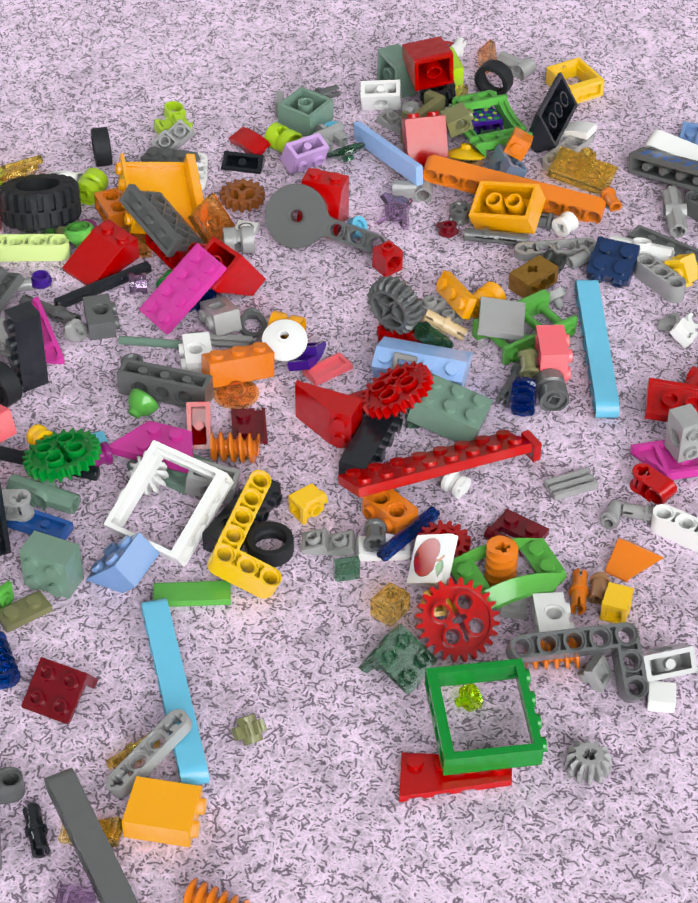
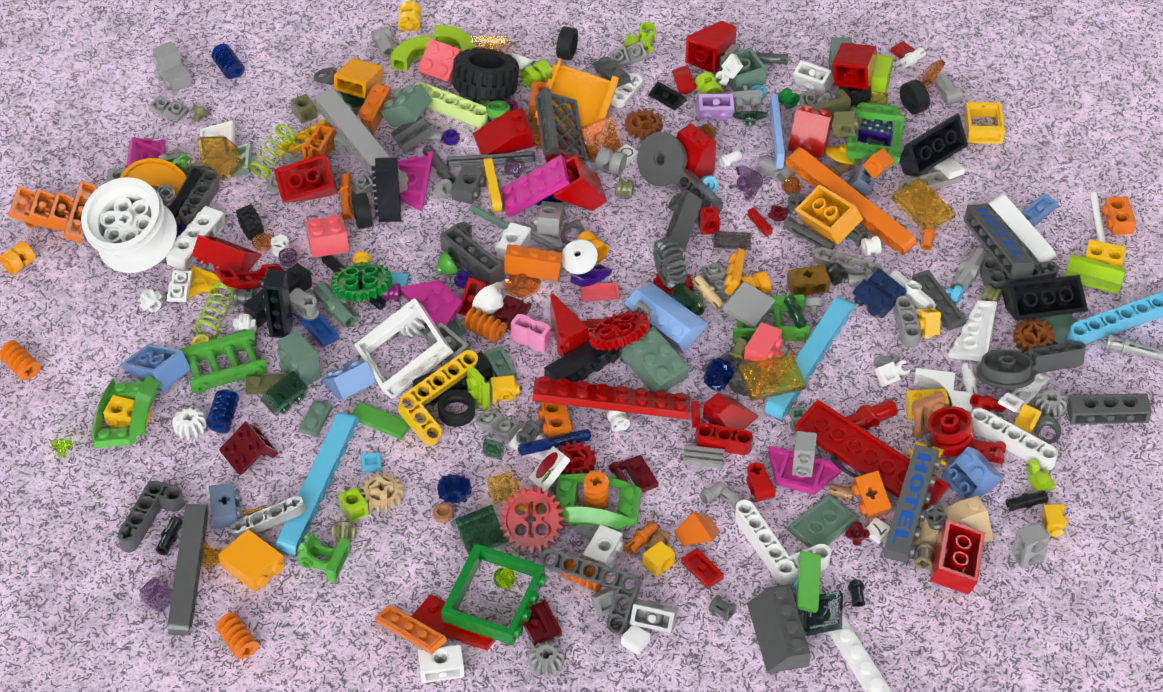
camera: 30 degrees right, 5 degrees up
(60, 610) = (284, 394): none -> clear green brick
(81, 756) = (223, 505): none -> sand blue brick
(113, 623) = (315, 418): none -> sand green plate
(128, 308) = (493, 188): none -> yellow beam
(169, 413) = (461, 279): none -> dark purple plate
(216, 642) = (371, 462): none -> medium azure tile
(223, 418) = (489, 299): none -> white piece
(235, 695) = (353, 504): none -> lime brick
(255, 100) = (709, 45): none -> red slope
(257, 668) = (382, 491): none -> tan gear
(259, 761) = (313, 547): none -> bright green tile
(274, 260) = (625, 188): none -> olive wheel
(285, 509) = (478, 388): none -> lime plate
(289, 481) = (500, 362): none -> sand green plate
(292, 434) = (530, 332): none -> bright pink brick
(299, 109) = (730, 69): none -> white plate
(341, 626) = (454, 488): none -> clear blue gear
(342, 660) = (443, 513): none -> nougat tile
(357, 196) = (730, 158): none -> white pin
(361, 256) = (685, 209): none -> dark grey beam
(371, 121) = (788, 98): none -> green wheel
(416, 800) = (410, 629): none -> orange tile
(422, 270) = (729, 240): none -> clear smoke tile
(435, 243) = (759, 221): none -> red axle
(440, 199) = (791, 185): none -> clear orange tile
(491, 819) = (451, 667): none -> white brick
(555, 727) = (542, 624): none -> dark red plate
(560, 310) = (795, 311): none -> clear green pin
(563, 434) = (727, 412): none -> red slope
(572, 457) = (722, 437): none -> red beam
(586, 374) = (771, 377): none -> clear yellow plate
(633, 407) = (796, 414): none -> sand green bush
(667, 593) = (702, 568): none -> red plate
(683, 235) = (956, 294): none -> medium azure tile

